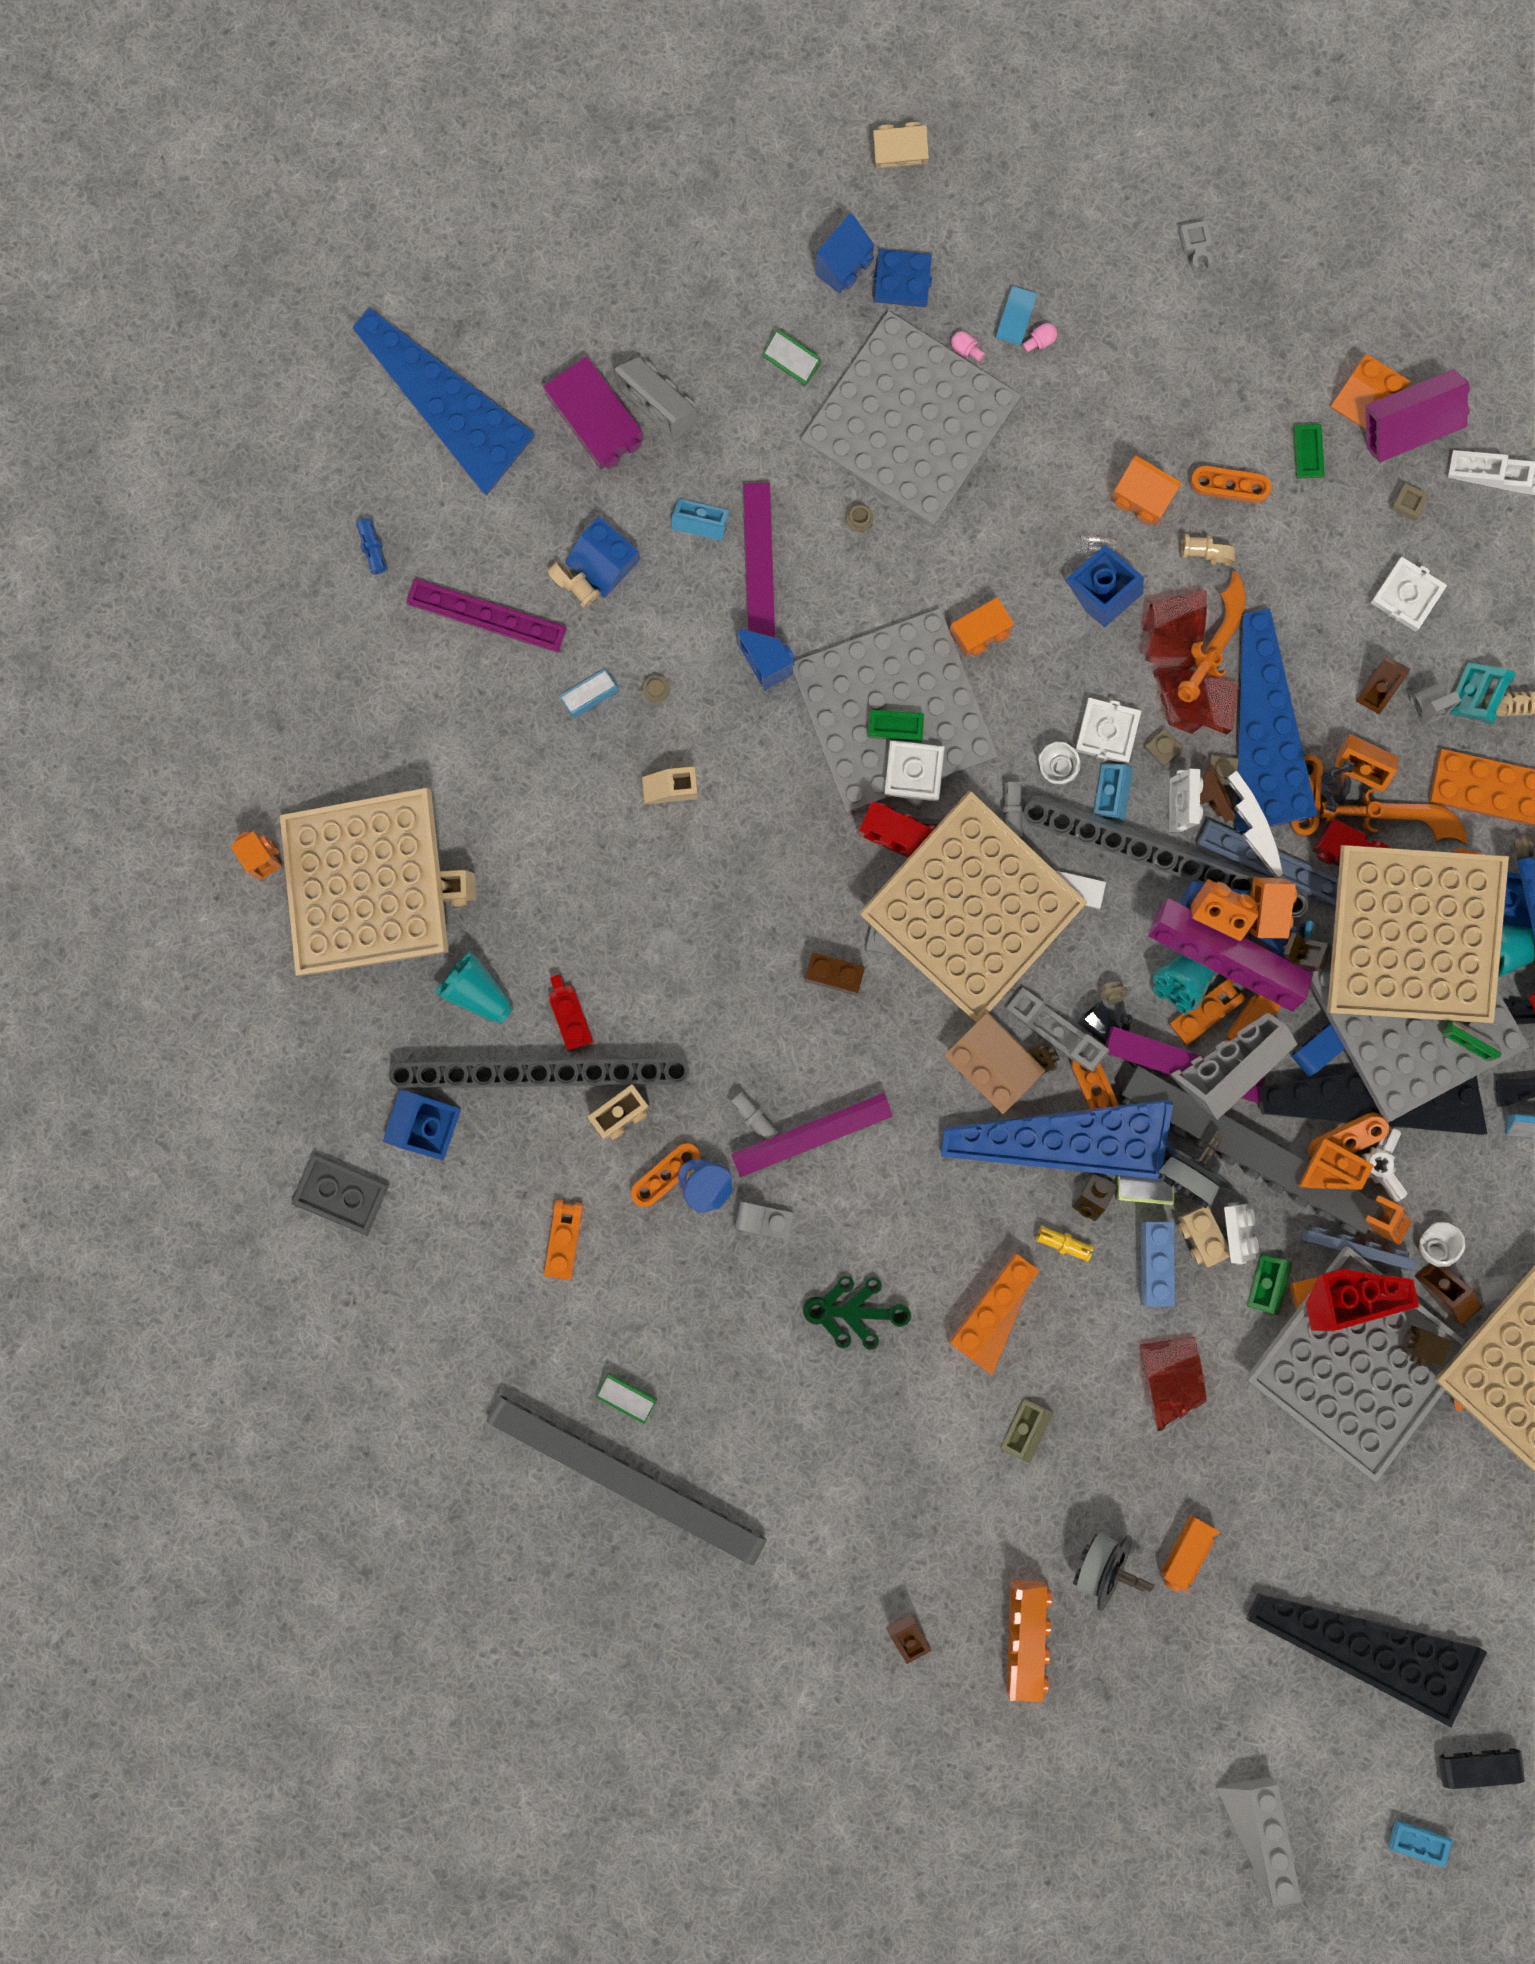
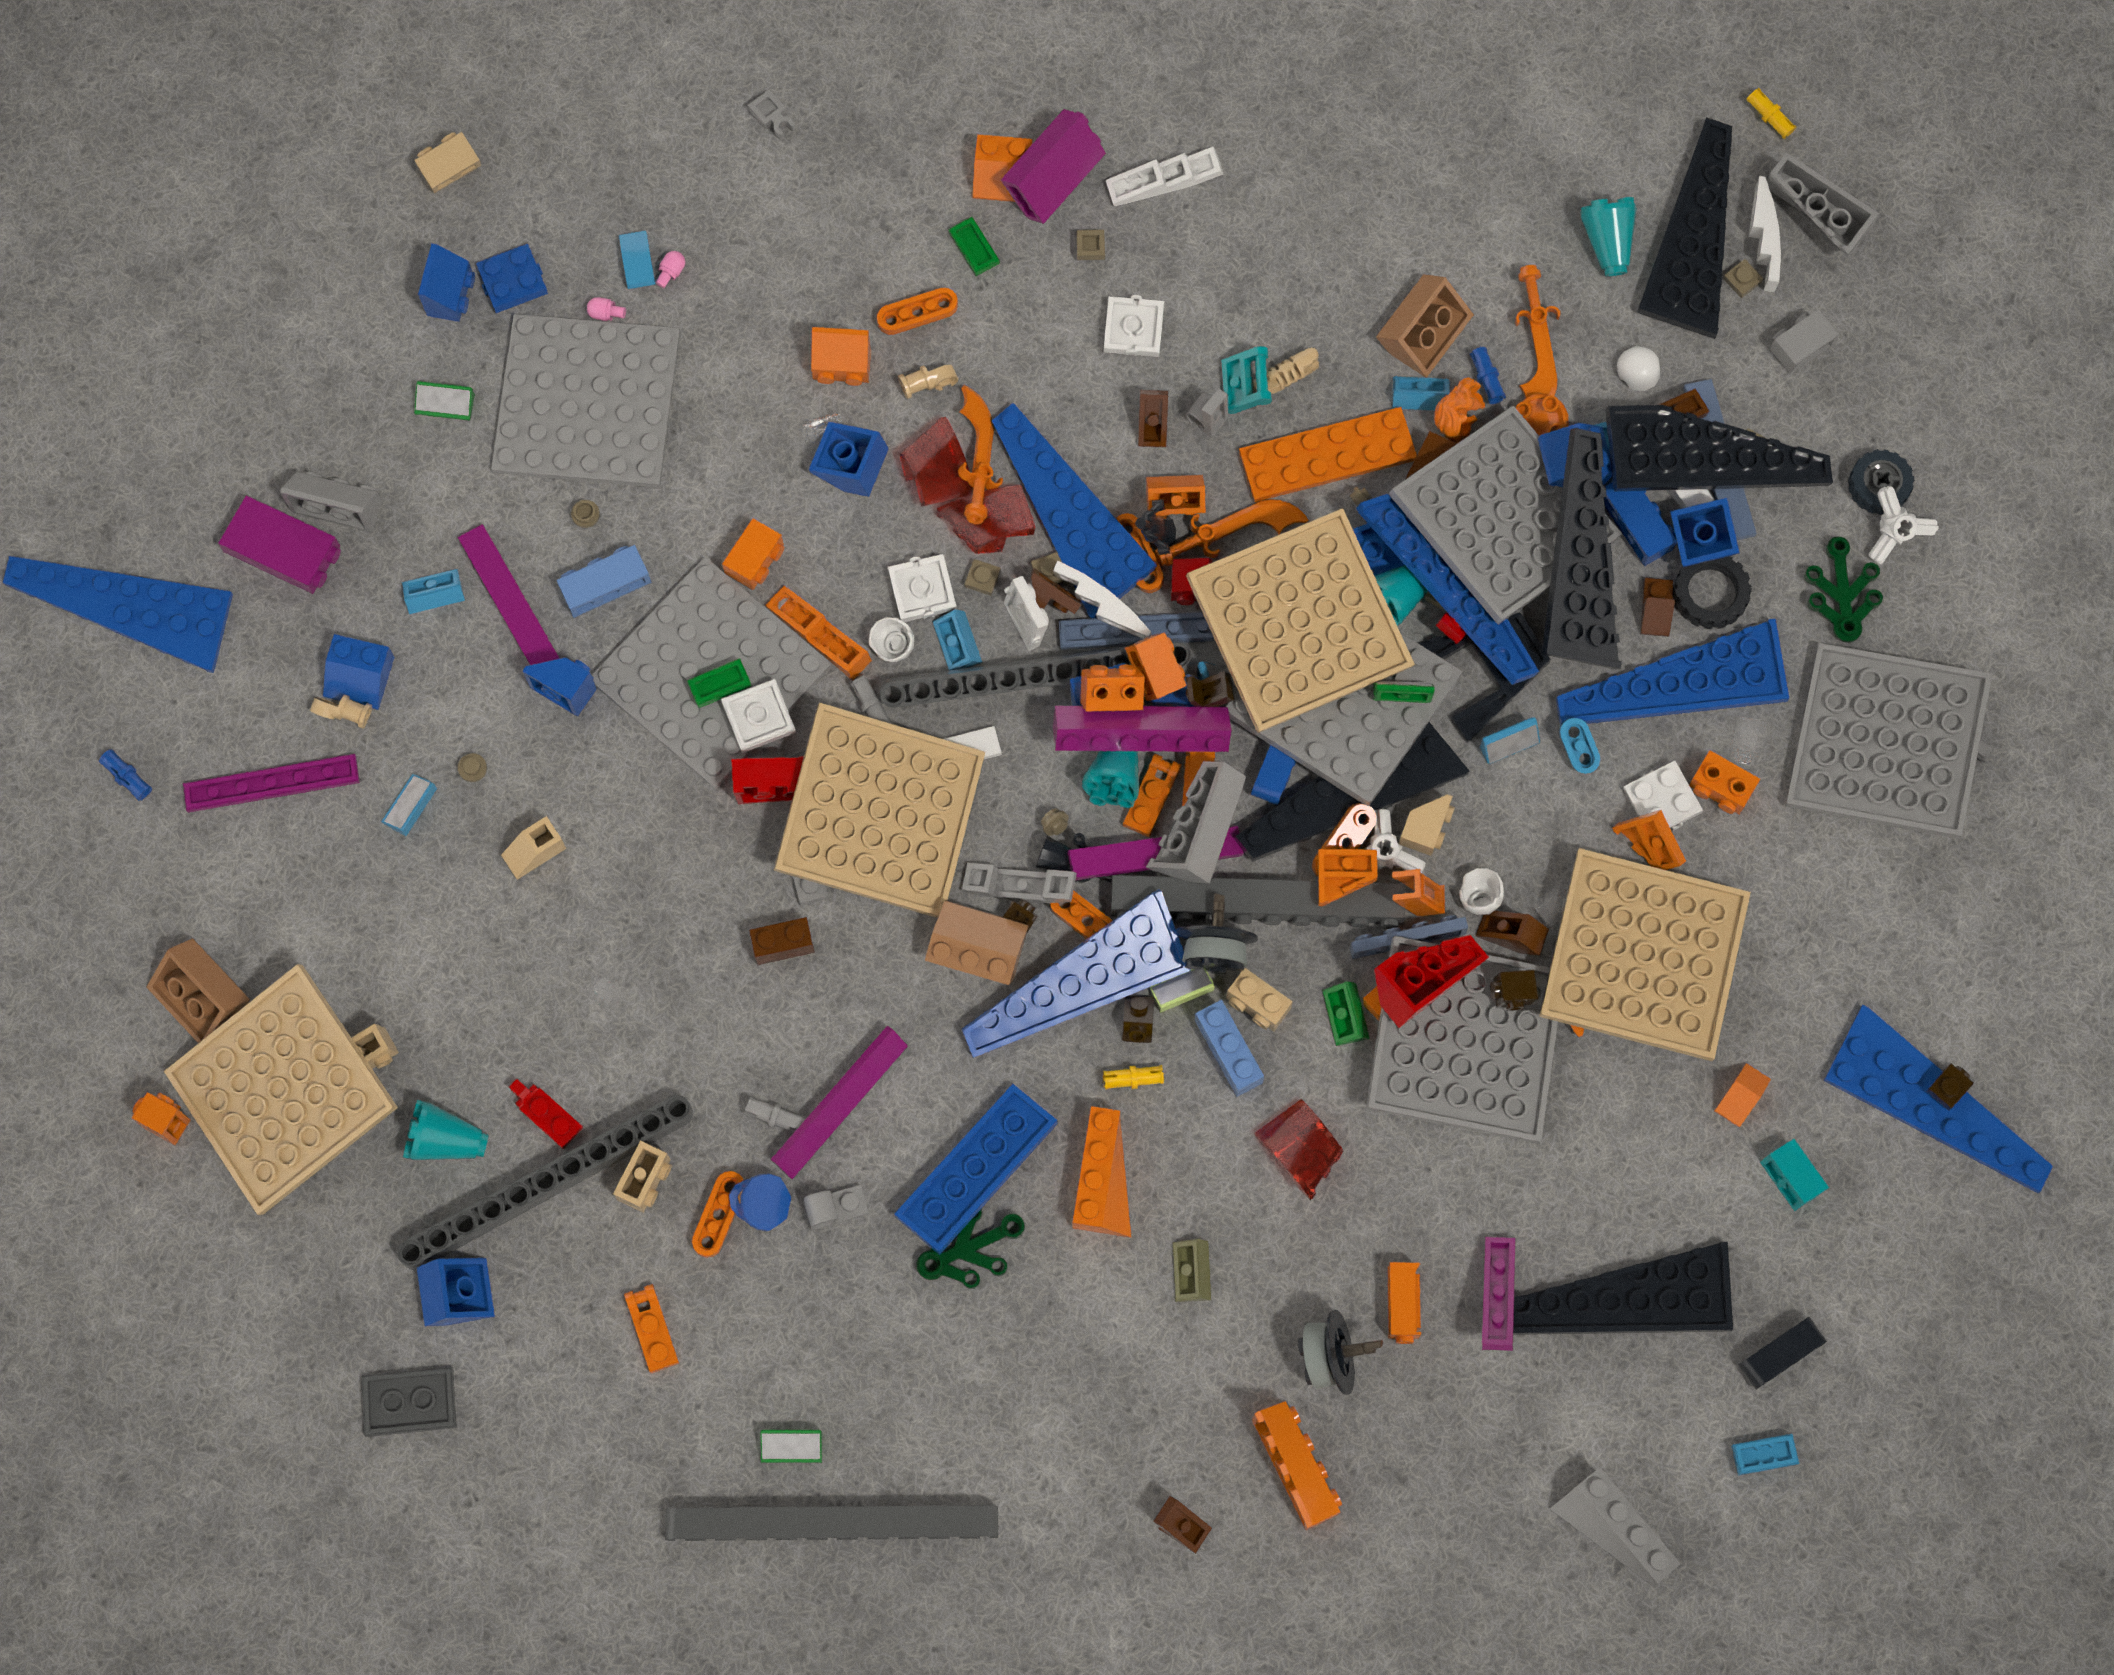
camera: 30 degrees left, 10 degrees down
(339, 761) = (195, 989): none -> medium nougat slope
(845, 584) = (603, 580): none -> medium blue brick
(895, 1252) = (976, 1169): none -> blue plate
(1001, 724) = (819, 633): none -> orange slope
(1240, 1233) = (1285, 971): white plate -> none
(1272, 1593) = (1498, 1293): none -> magenta plate
(1423, 1162) = (1424, 825): none -> tan slope

